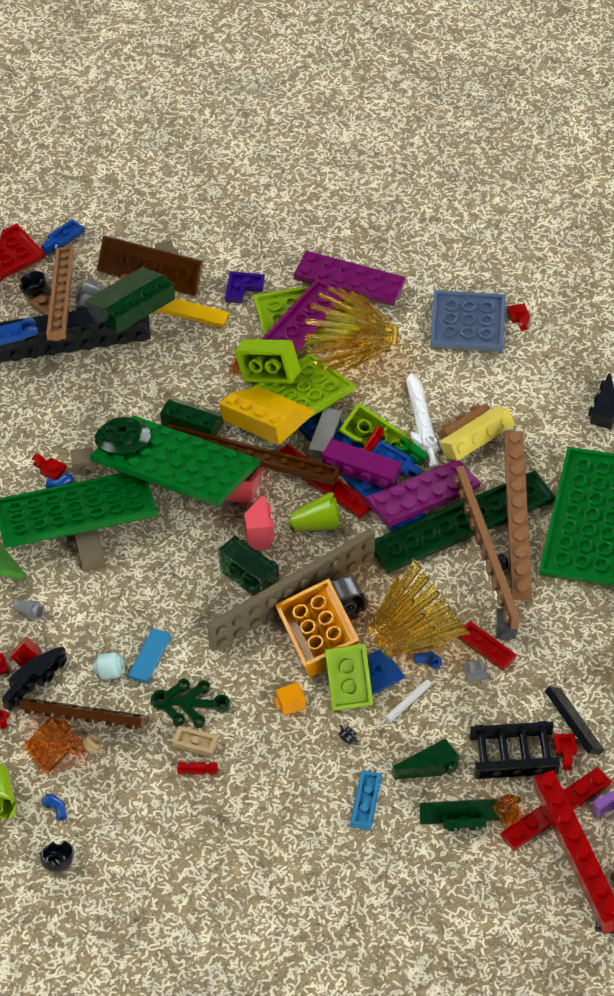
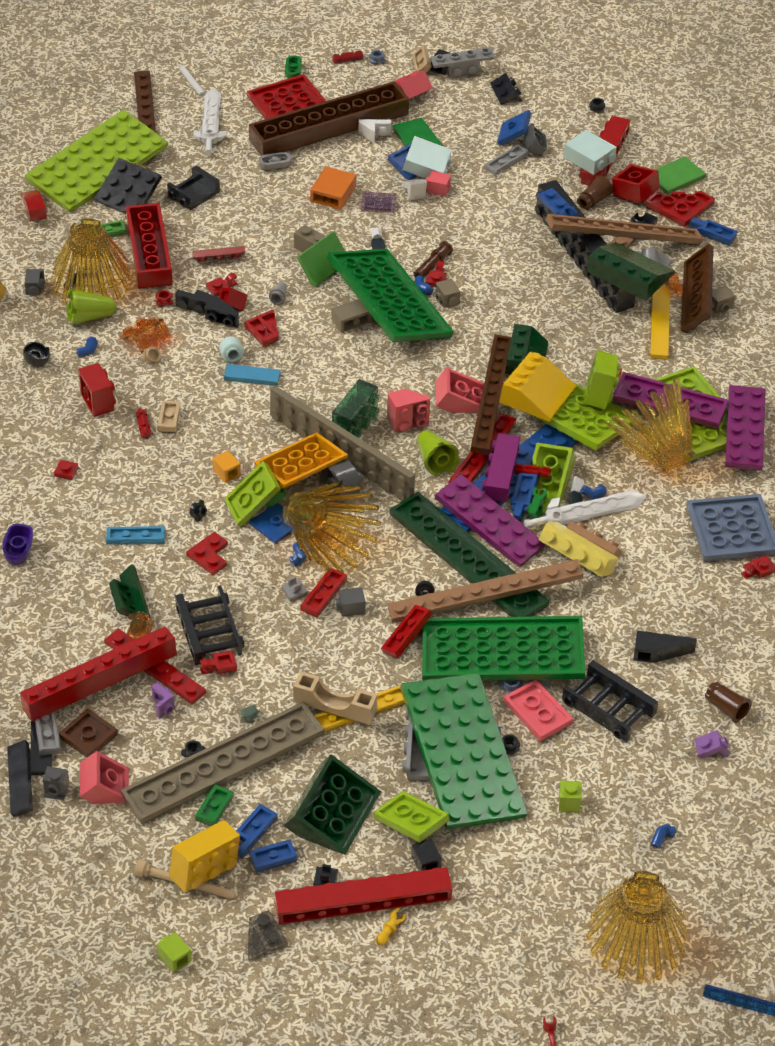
camera: 75 degrees right, 5 degrees down
(19, 459) = (440, 253): none -> reddish brown pin
(81, 631) = (263, 328): none -> red wing
(91, 714) = (175, 340): reddish brown plate -> none
(122, 436) = (472, 300): dark green piece -> none
(145, 799) = (96, 389): none -> red brick
(183, 464) = (457, 340): green plate -> none
(187, 701) = (208, 389): dark green plant -> none
(241, 282) = (706, 355): dark purple plate -> none
(250, 853) = (66, 470): none -> red plate
(325, 430) = (529, 438): light grey tile -> none
(363, 909) = (17, 543): none -> dark purple piece
(394, 420) = (575, 495): none -> piece
(401, 408) = (595, 493): none -> blue arm
(407, 701) = (248, 548): white bar -> none
(407, 741) = (206, 552): none -> red plate
(430, 762) = (184, 571): dark green slope -> none
(487, 549) = (428, 565): medium nougat plate -> none
(556, 585) = (406, 631): none -> red plate
(574, 720) = (253, 665): black tile -> none

